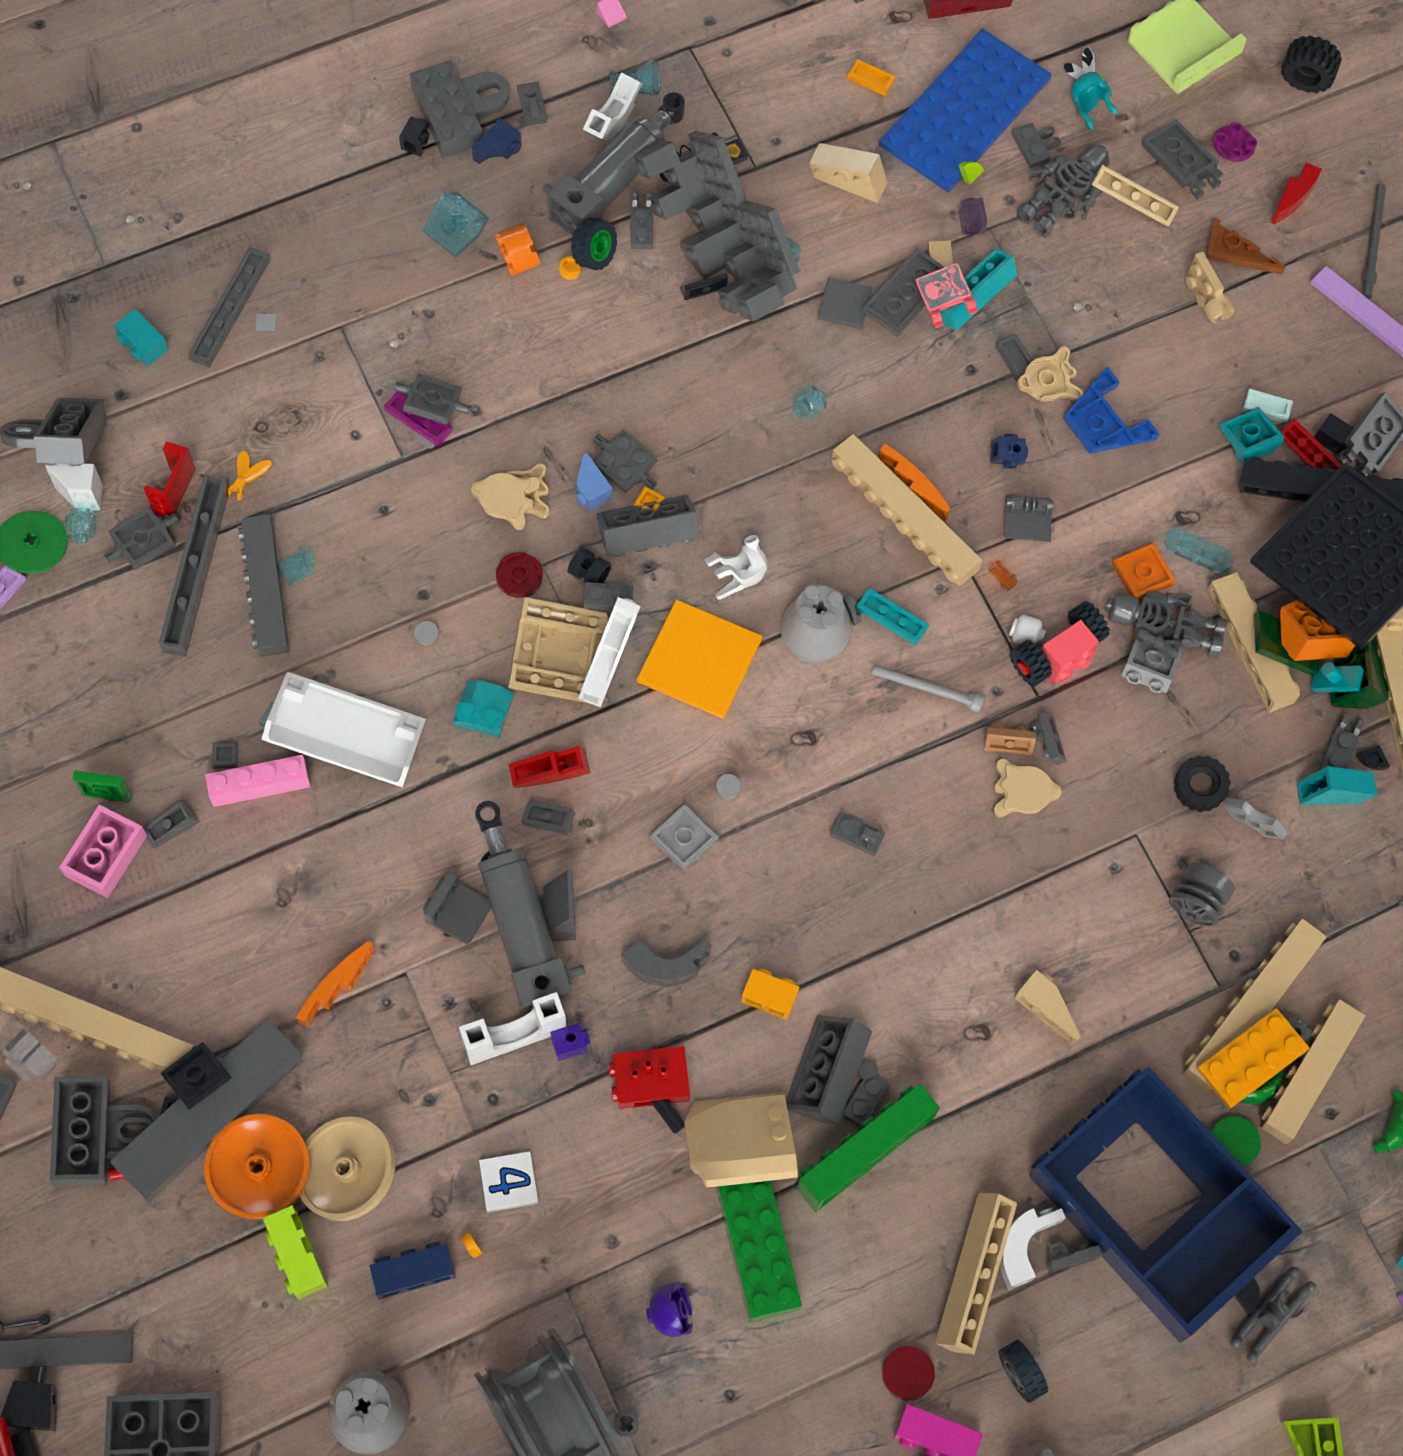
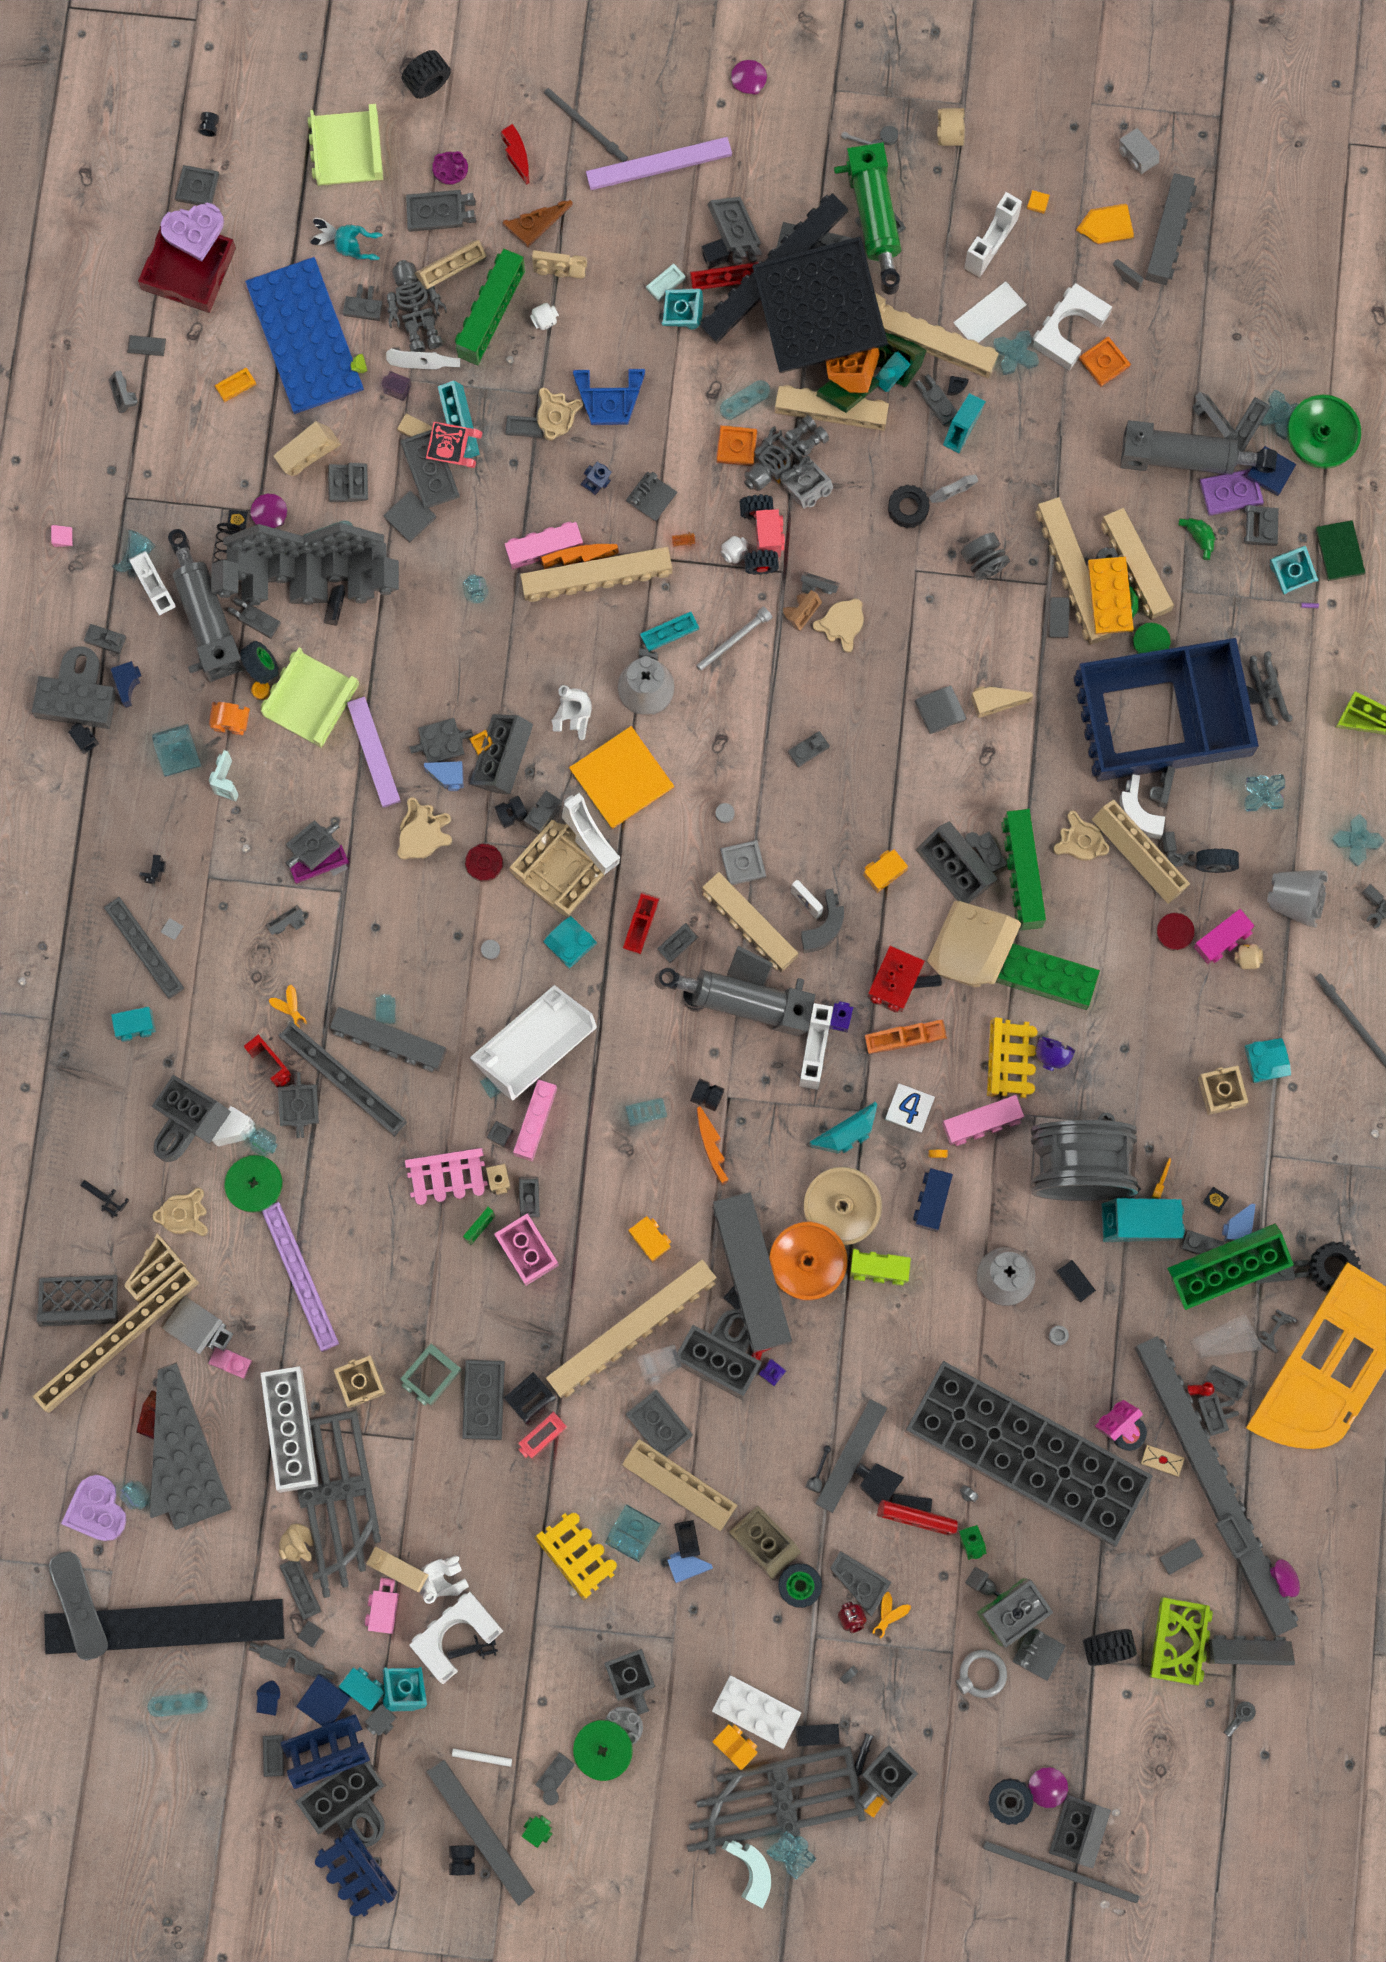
camera: 55 degrees left, 10 degrees up
(105, 1203) = (772, 1372): none -> dark purple tile
(158, 730) = (455, 1168): none -> bright pink fence
(170, 780) = (498, 1179): none -> tan brick
(189, 977) = (650, 1239): none -> light orange brick
(196, 1075) = (727, 1266): black tile -> none
(317, 272) = (157, 869): none -> black bracket
(324, 874) = (629, 1110): none -> clear light blue slope
(344, 423) = (292, 916): none -> dark grey hinge
(392, 947) = (707, 1094): none -> black wheel
(439, 1127) = (848, 1132): none -> teal wedge
(452, 273) = (218, 783): none -> light aqua bracket
(456, 909) = (706, 1038): dark grey bracket -> none
(541, 1274) = (983, 1120): none -> bright pink brick
(571, 405) = (373, 752): none -> lavender tile
(590, 313) = (309, 698): none -> yellowish green panel
(590, 1128) = (905, 1036): none -> orange slope
(619, 881) = (749, 922): none -> tan brick
(648, 1260) = (996, 1066): none -> yellow fence
(681, 924) = (807, 899): none -> white tile
(761, 175) = (269, 510): none -> magenta dish
(840, 228) = (347, 482): none -> dark grey slope
(883, 428) = (534, 546): none -> bright pink brick
(947, 1197) = (1081, 840): none -> tan tile
(995, 949) = (940, 709): none -> dark grey slope
(1004, 1307) = (1170, 849): none -> dark grey bar
(1010, 216) = (412, 360): none -> white piece
(1116, 252) = (490, 306): none -> green brick
(1144, 309) = (544, 316): none -> white head
(1145, 1379) = (1264, 791): none -> clear light blue plant
(1190, 1020) = (1058, 617): none -> dark grey slope

